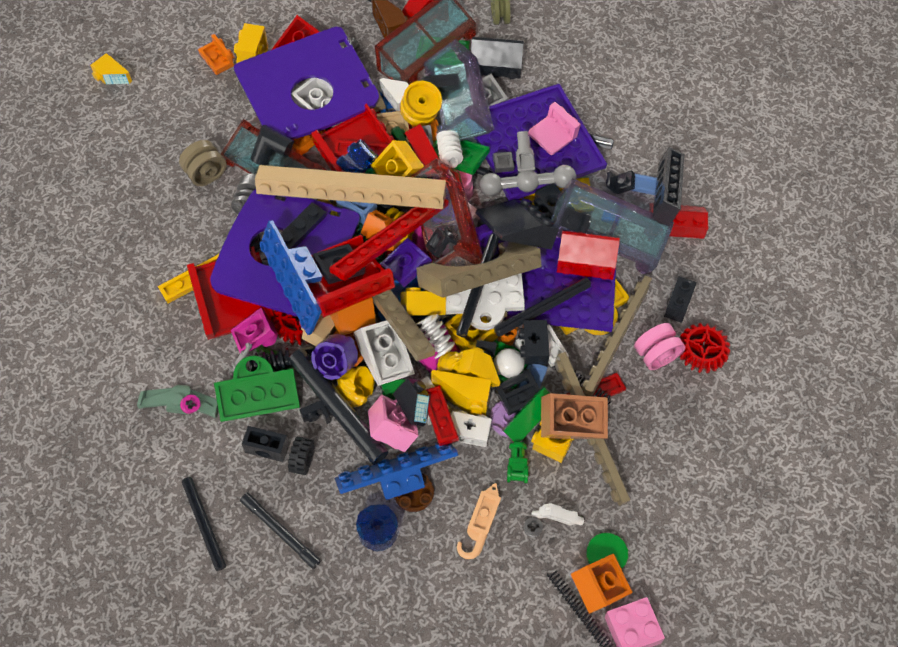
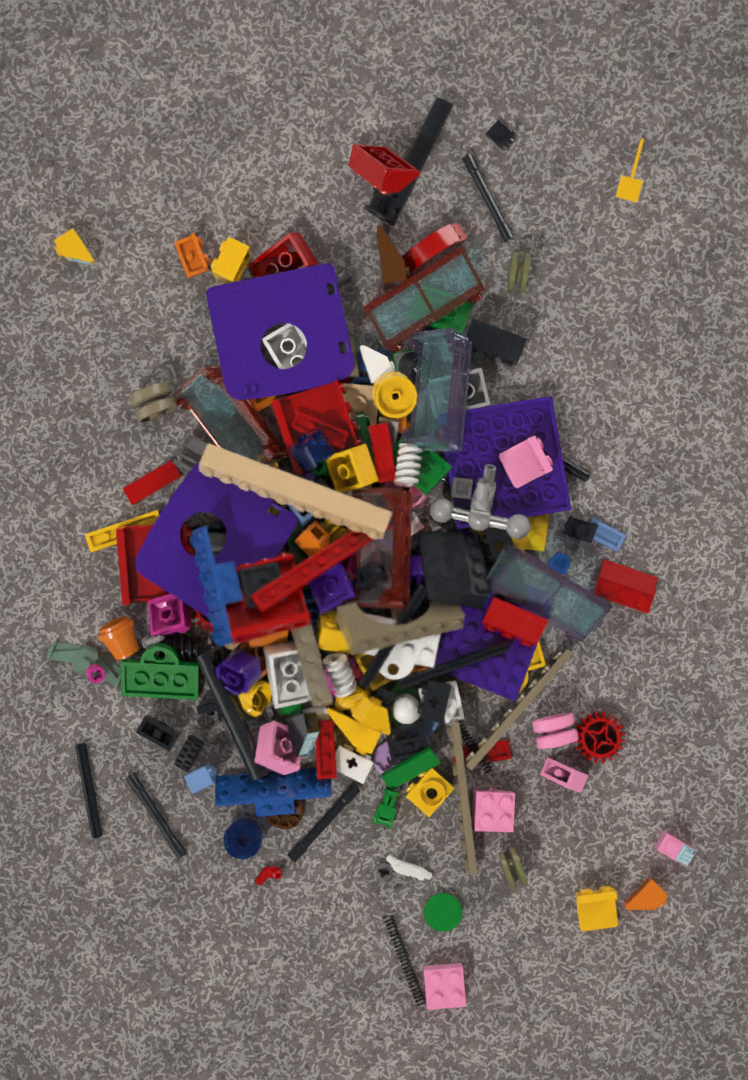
camera: 10 degrees right, 25 degrees up
(208, 364) = (119, 637): none -> orange piece
(213, 234) = (152, 482): none -> red tile
(269, 141) = (226, 399): black brick -> none
(303, 225) = (235, 523): black plate -> none
(319, 474) = (201, 777): none -> medium blue brick
(413, 559) = (268, 872): none -> red arm
(441, 523) = (302, 846): none -> black piece
(444, 82) = (425, 366): black tile -> none
(481, 521) = (339, 854): light nougat plate -> none
(574, 417) = (447, 790): nougat slope -> none
(575, 220) = (509, 590): black bracket -> none
(601, 583) = (428, 941): orange slope -> none
(627, 437) = (493, 810): none -> bright pink brick
(664, 485) = (512, 869): none -> olive wheel
(668, 187) = (622, 562): black brick -> none
(680, 299) = (594, 680): black brick -> none
(683, 388) = (564, 775): none -> bright pink slope
(762, 507) = (597, 908): none -> yellow bracket
(809, 483) = (646, 897): none -> orange slope
(816, 430) = (675, 849): none -> bright pink slope

